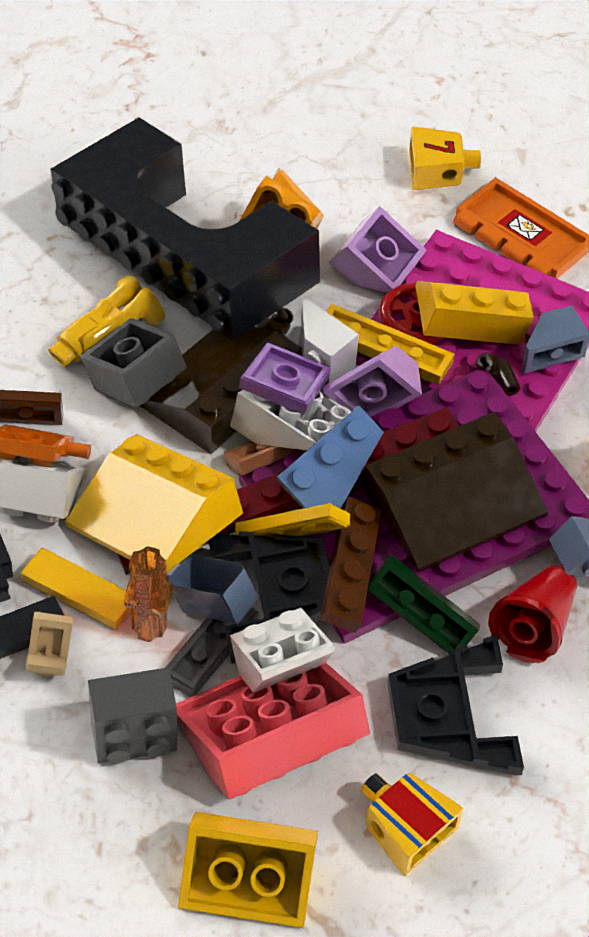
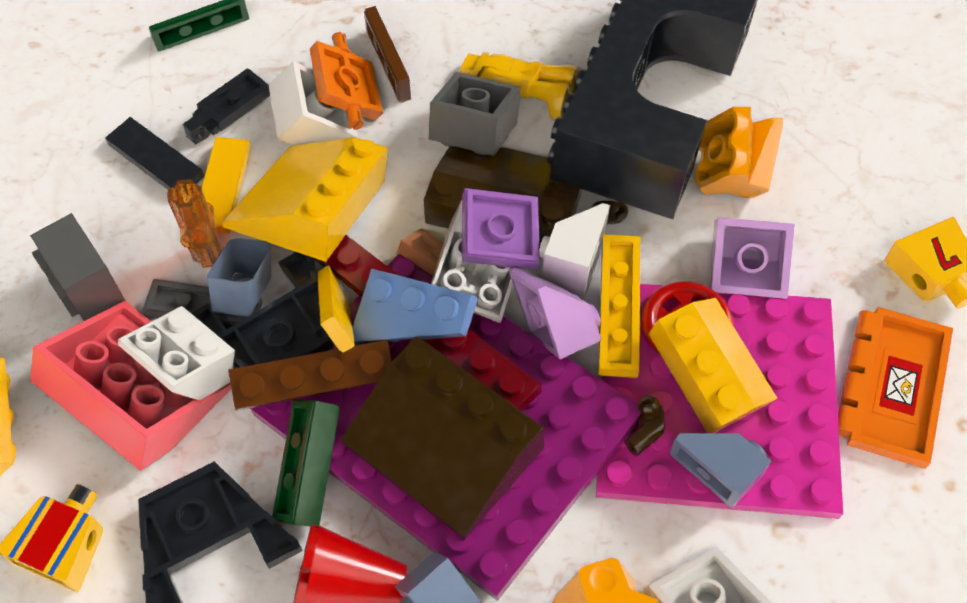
camera: 70 degrees right, 10 degrees up
(49, 644) = (141, 188): tan bracket -> none

